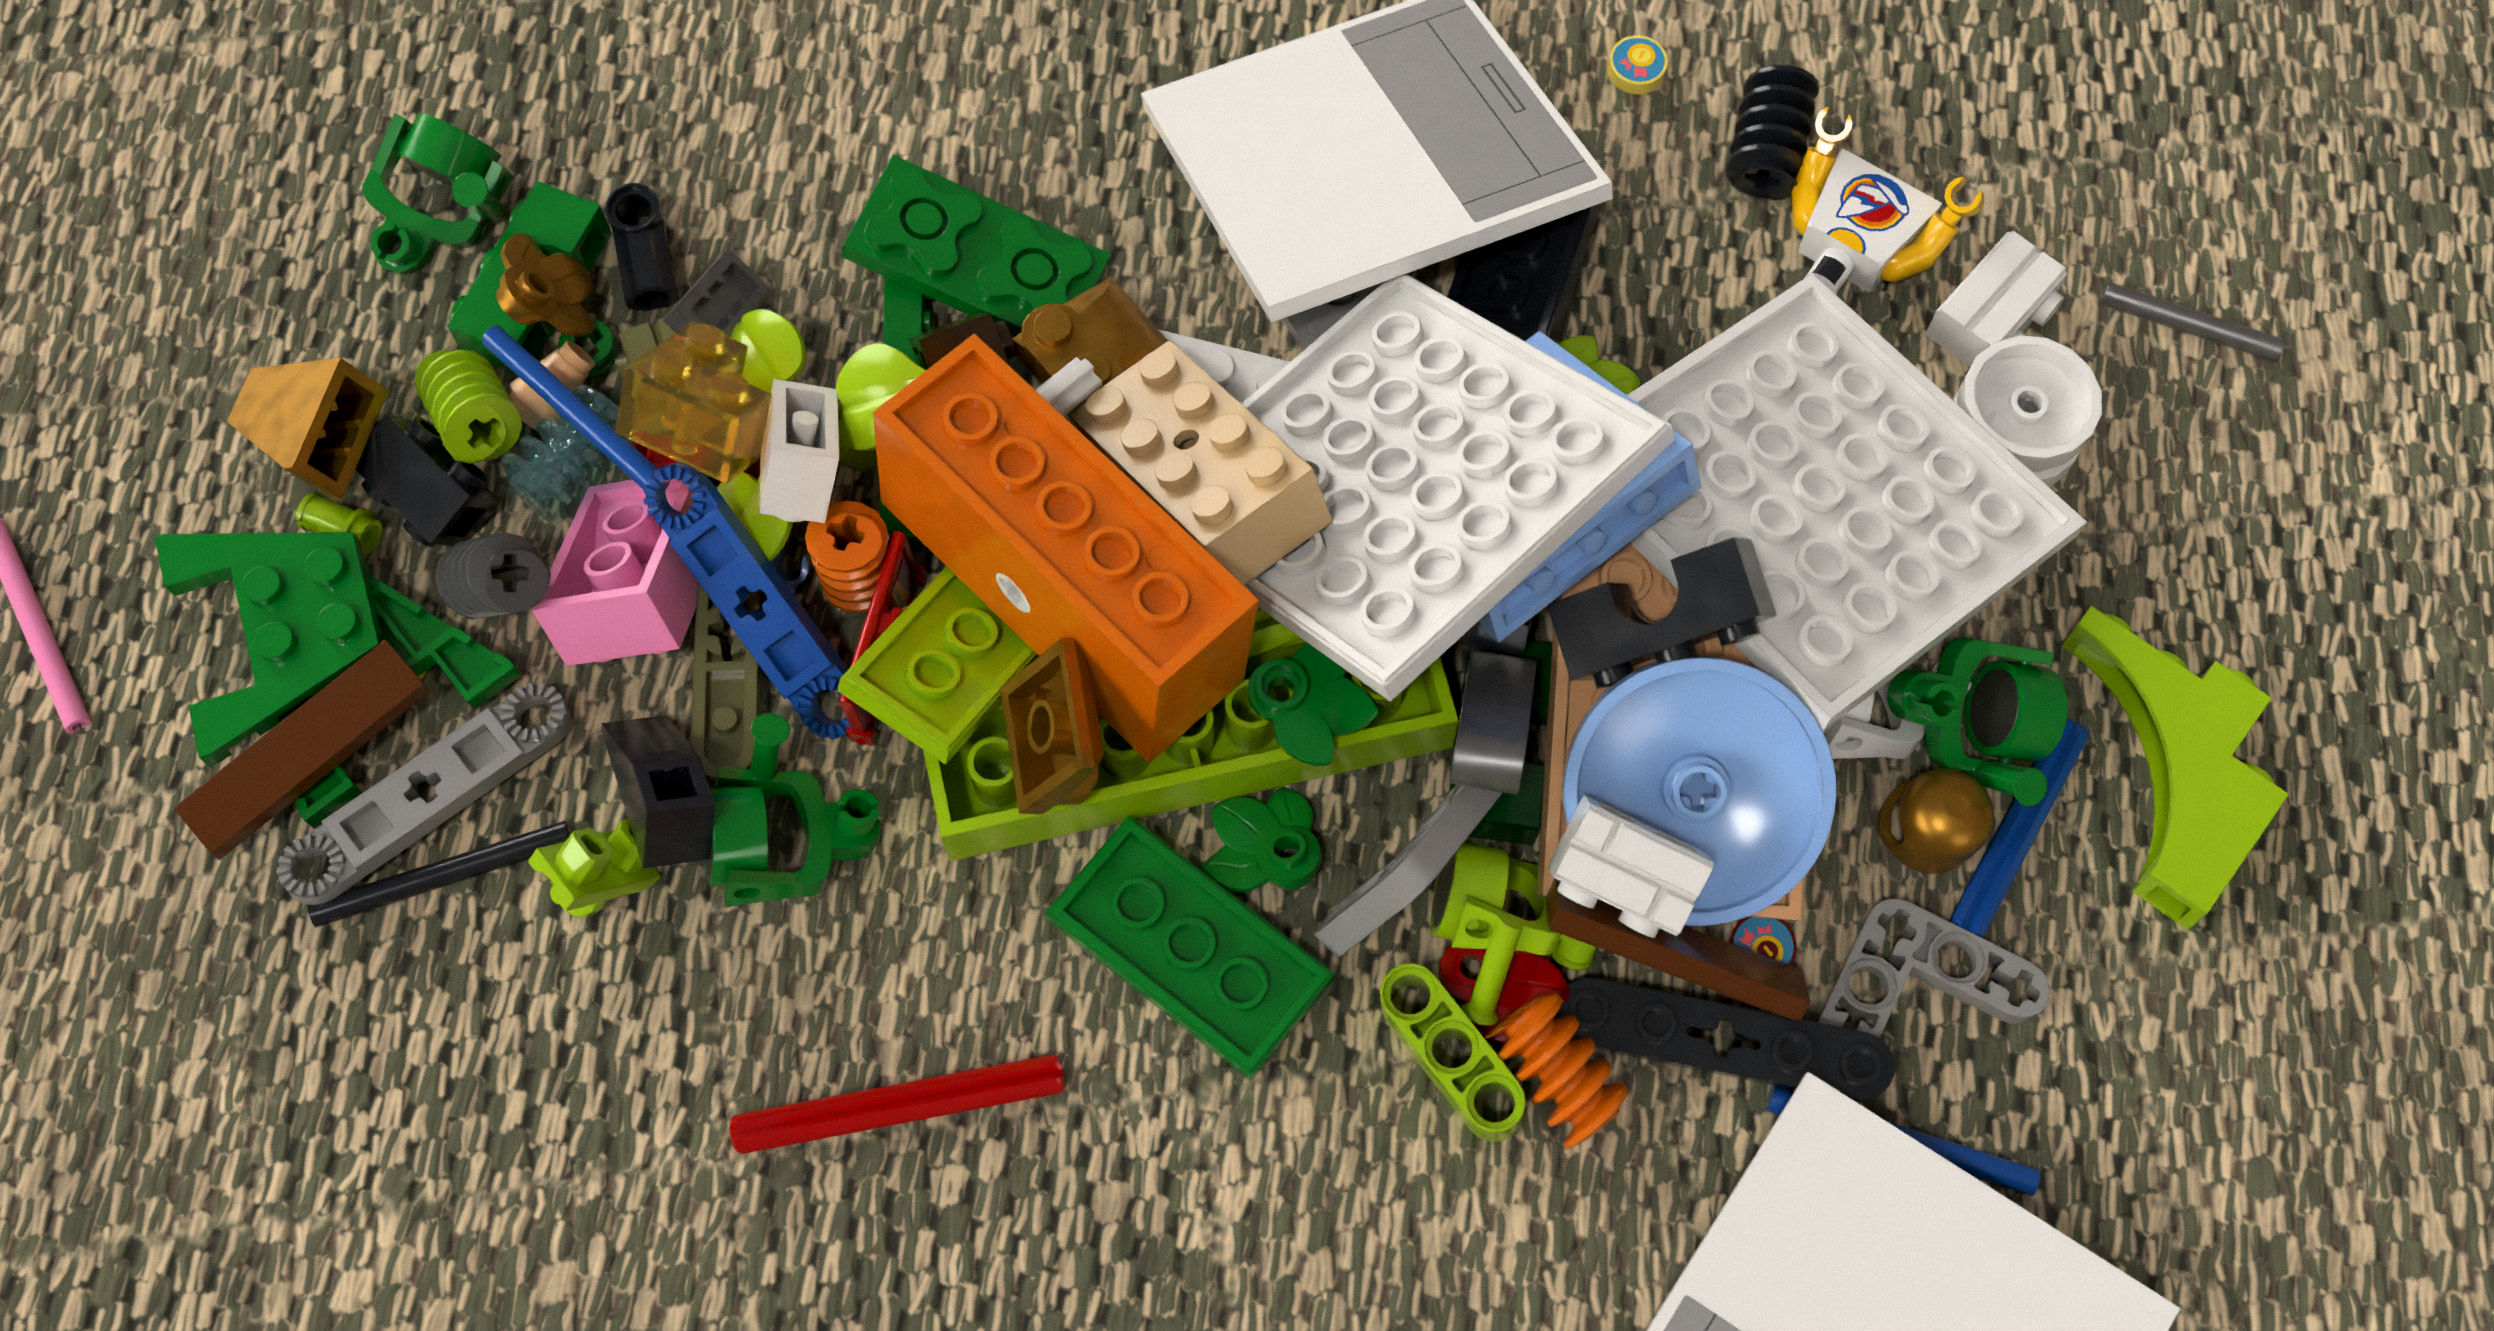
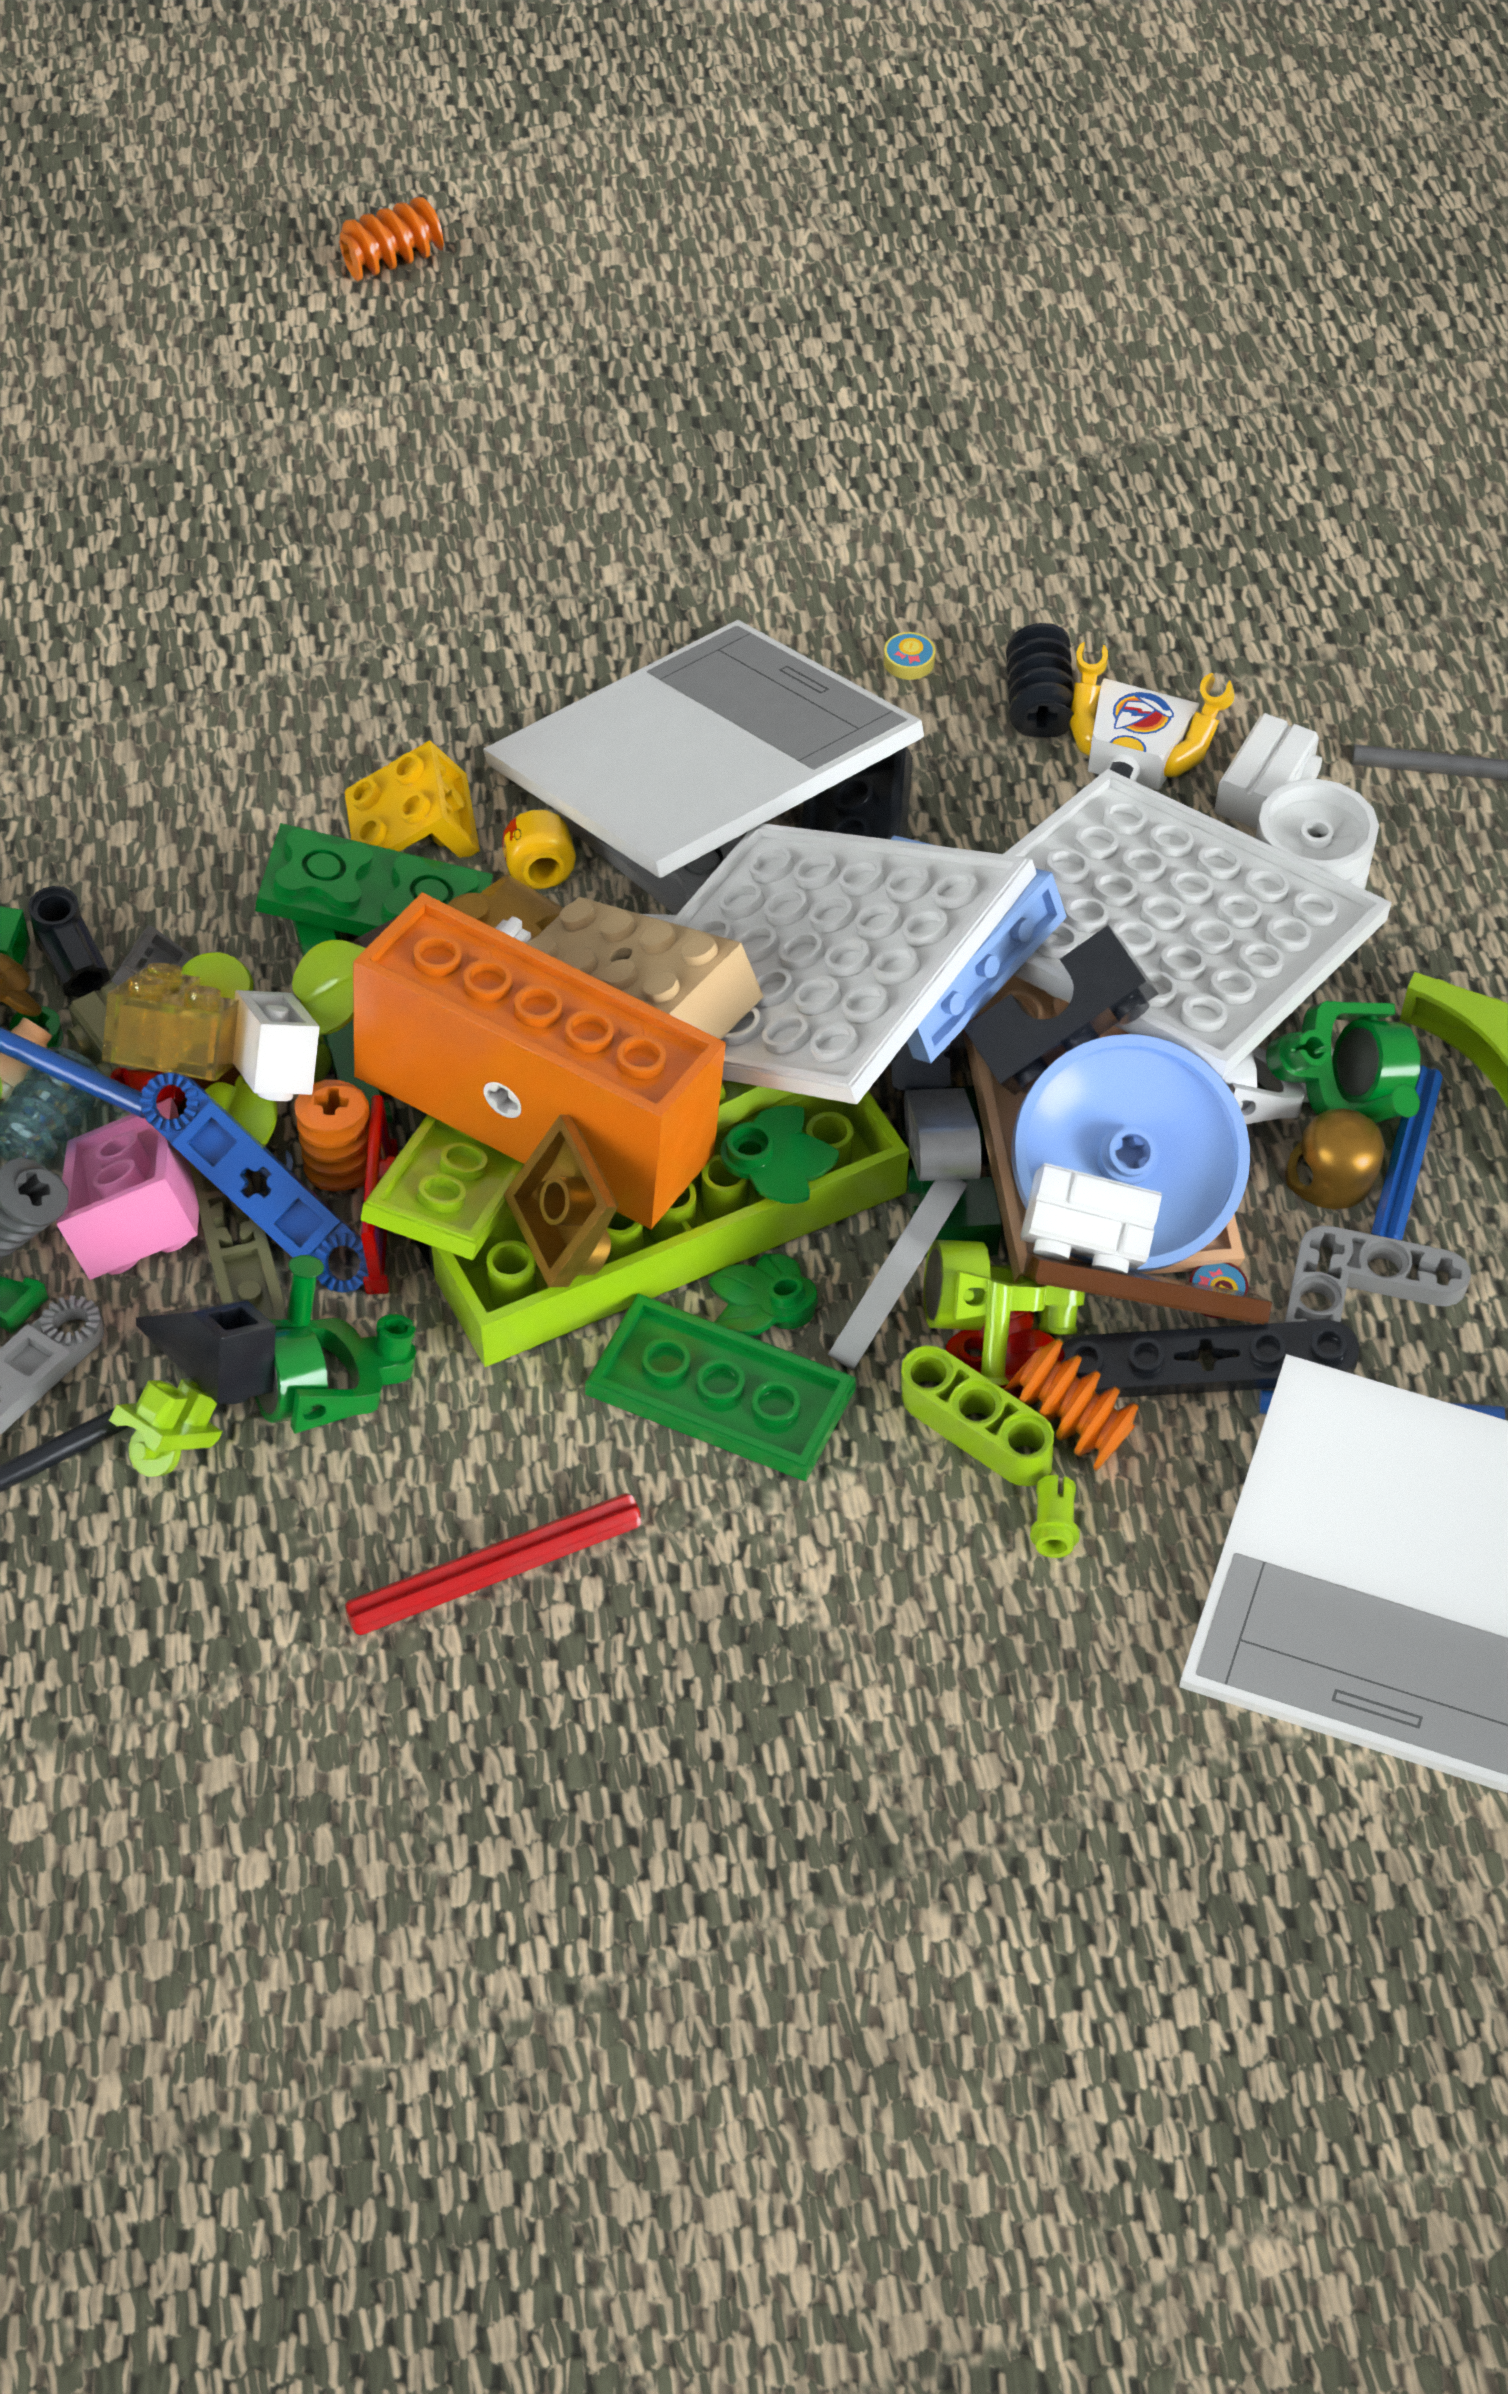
camera: 15 degrees left, 15 degrees down
(1046, 149) = (410, 800): none -> yellow bracket
(1166, 235) = (538, 849): none -> yellow head
(1505, 1193) = (1055, 1527): none -> lime pin

